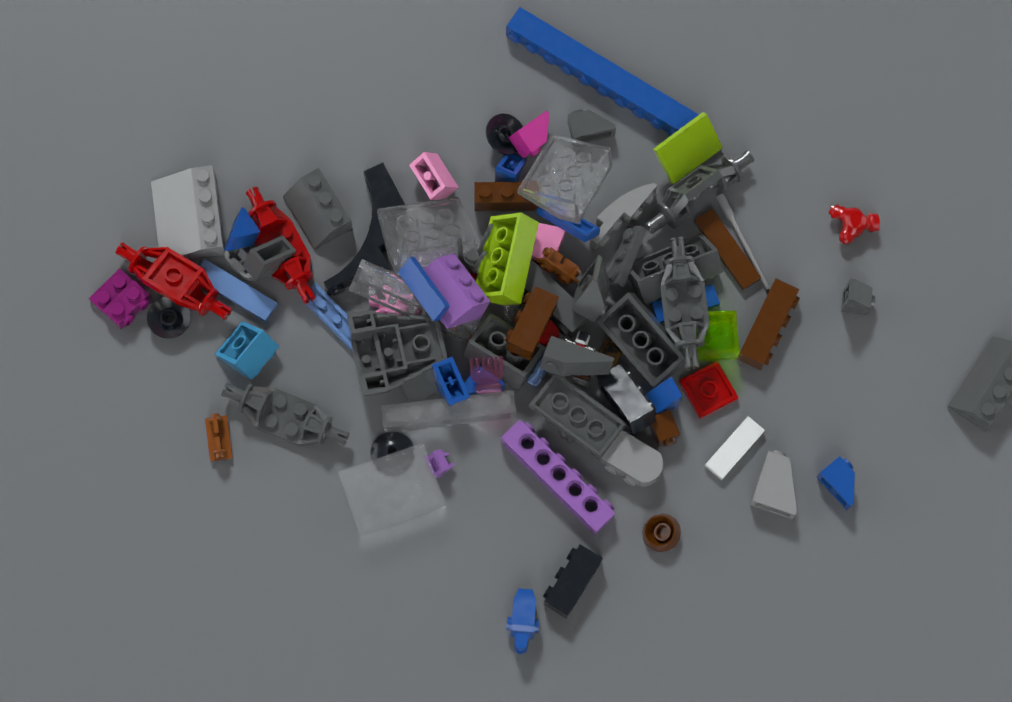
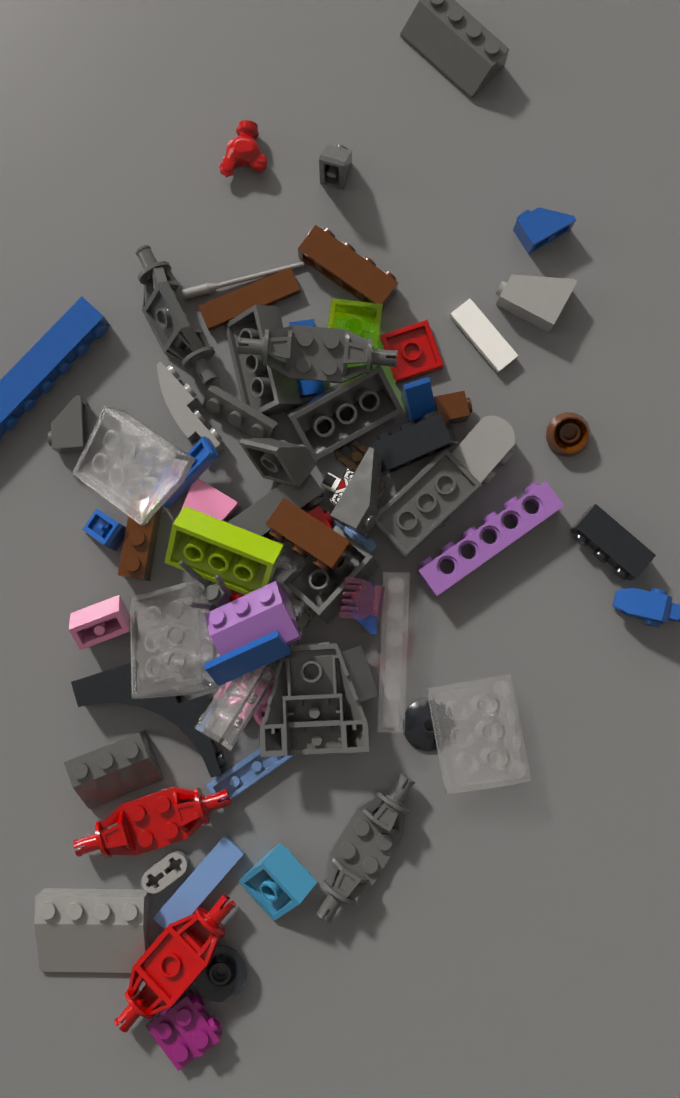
camera: 75 degrees left, 10 degrees up
(218, 437) = (379, 930): dark orange hinge -> none
(243, 232) = (129, 867): blue slope -> none
(268, 257) = (168, 841): dark grey slope -> none
(439, 462) = (452, 673): medium lavender tile -> none
(449, 381) = (366, 644): blue slope -> none
(506, 125) = (58, 519): black dish -> none
(531, 136) = (70, 496): dark pink slope -> none
(551, 263) = (234, 500): dark orange hinge -> none
(688, 148) = (120, 317): lime tile -> none

